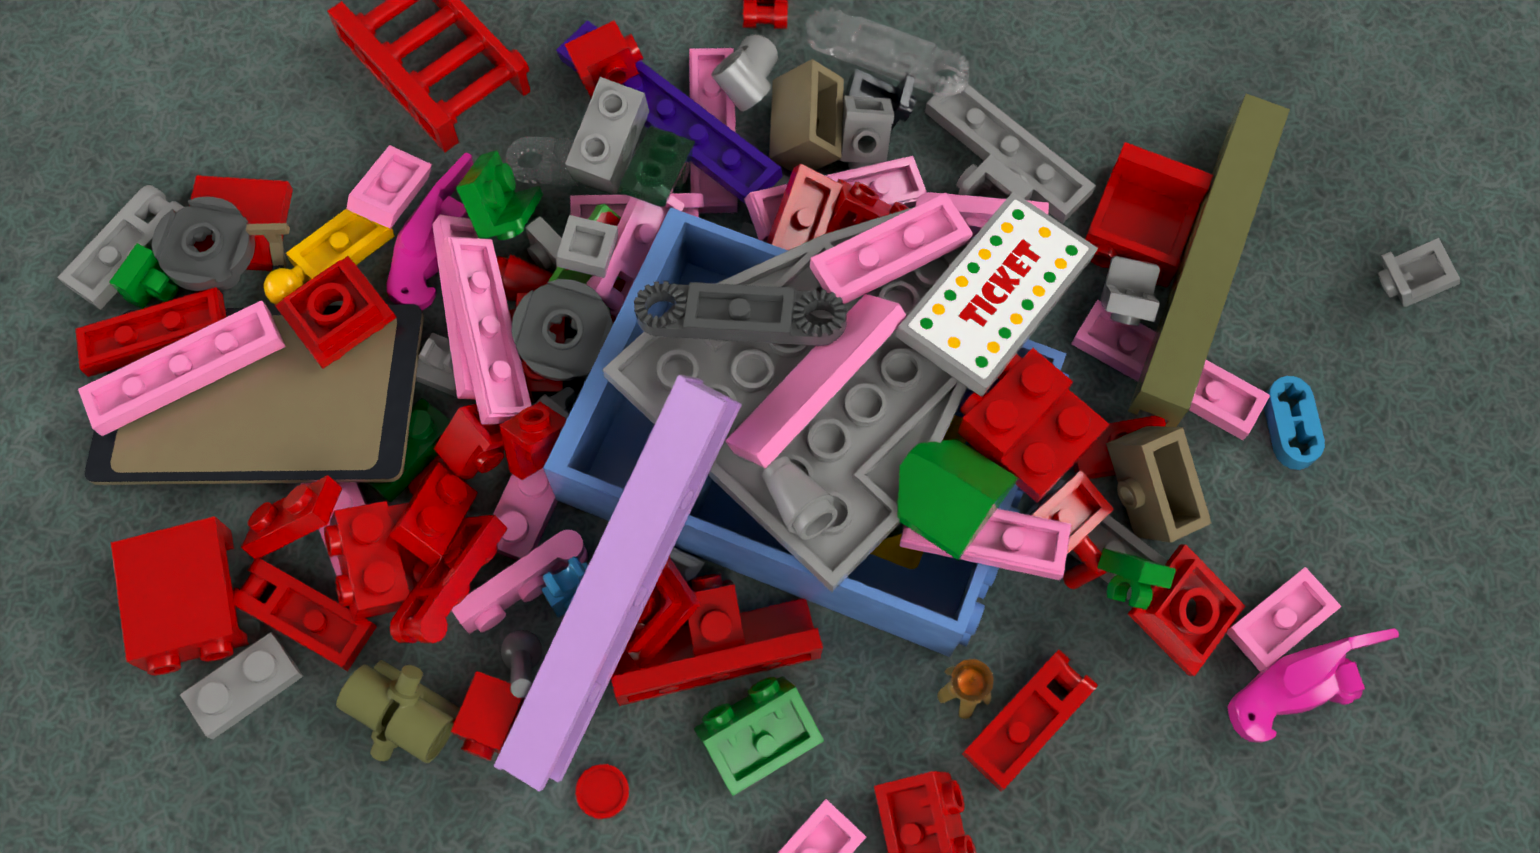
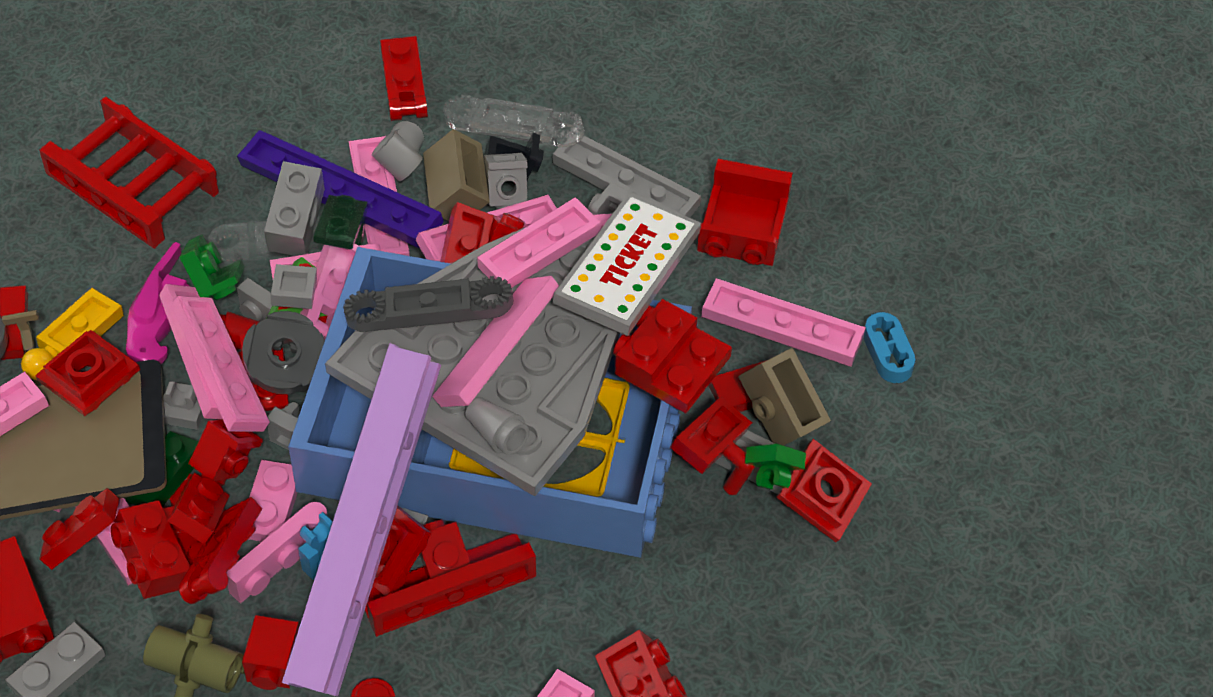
camera: 10 degrees left, 15 degrees down
(303, 614) = (99, 605): red plate -> none
(389, 187) = (115, 275): bright pink plate -> none
(521, 653) = (288, 605): dark grey bar -> none
(530, 438) = (270, 439): red bracket -> none
(604, 55) = (278, 146): red brick -> none
(758, 733) = (495, 633): bracket -> none
(949, 493) = (614, 410): green slope -> none
(969, 682) = (658, 565): clear orange piece -> none
(1011, 543) = (649, 440): bright pink tile -> none
(1028, 722) = (711, 591): red plate -> none
(1130, 291) = (740, 264): light grey bracket -> none
(1209, 262) = (799, 234): olive tile -> none
(1283, 619) = (902, 487): bright pink plate -> none
(1301, 684) = (925, 529): dark pink animal -> none
(1418, 273) = (969, 224): light grey bracket -> none

